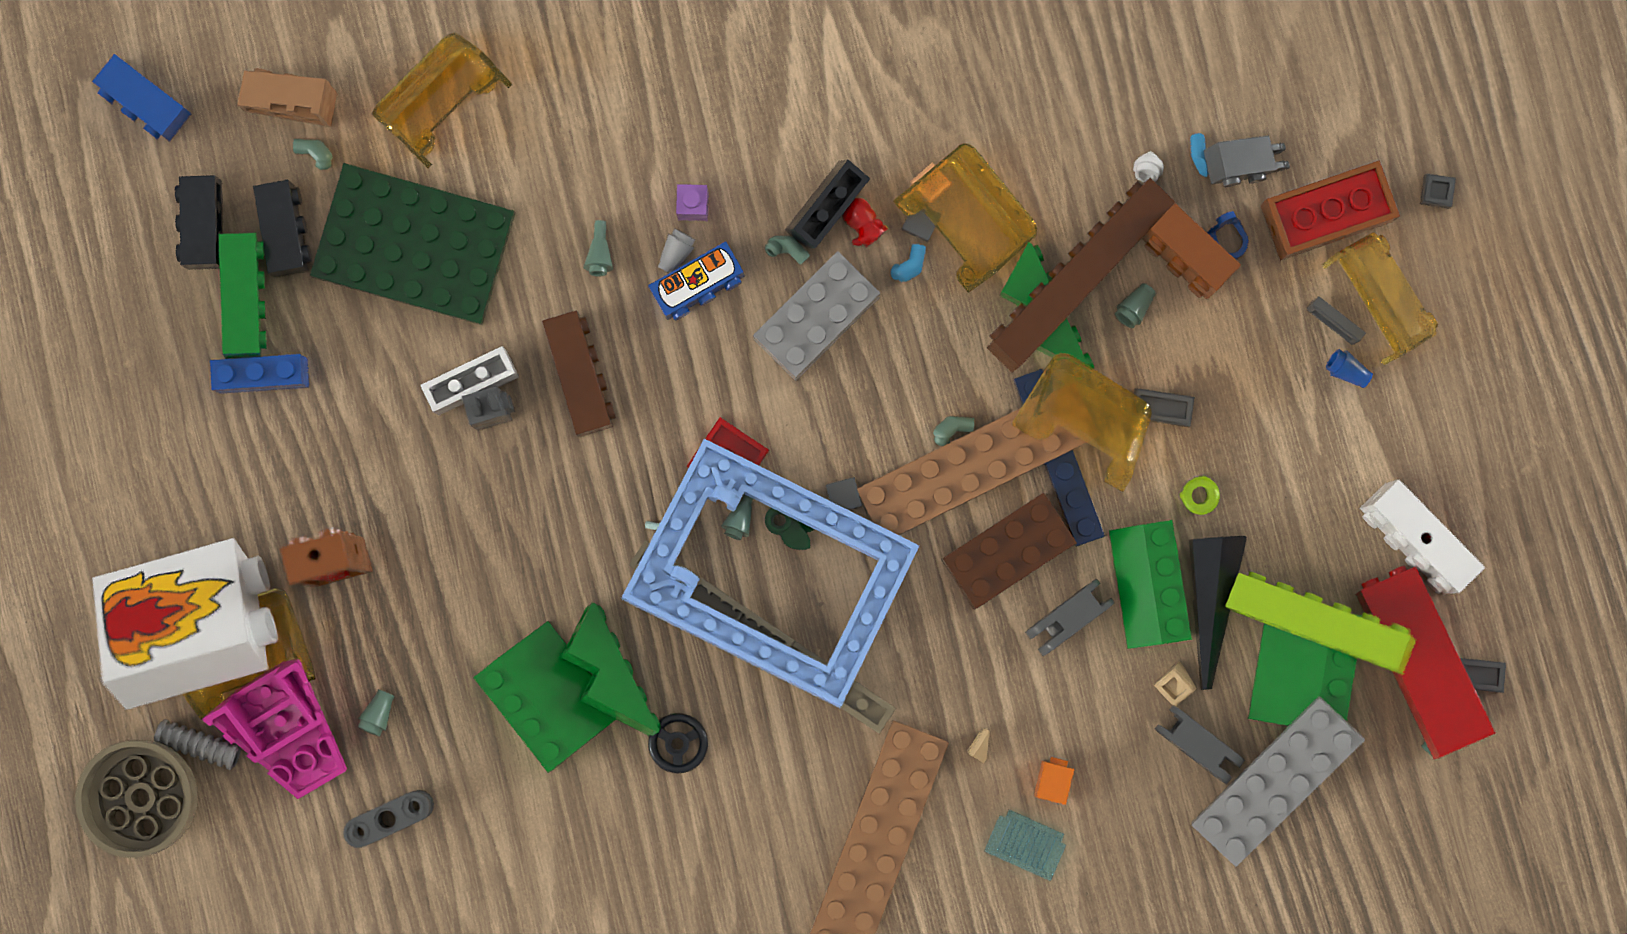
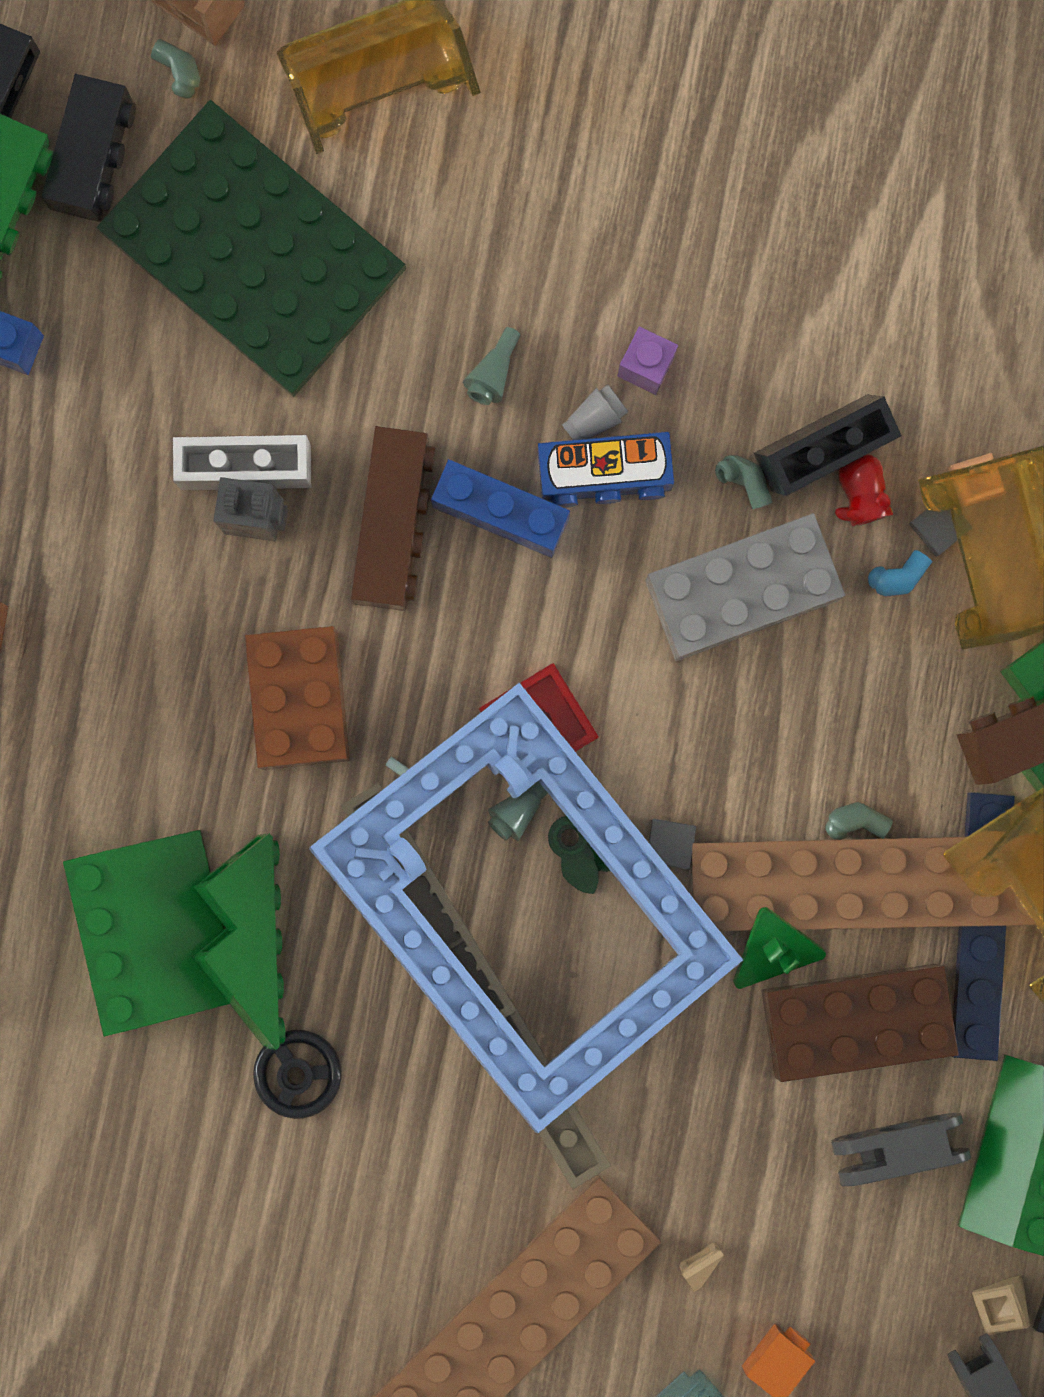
camera: 20 degrees right, 0 degrees up
(571, 511) = (297, 698): none -> dark orange brick
(643, 336) = (500, 508): none -> blue brick
(936, 531) = (774, 949): none -> green piece

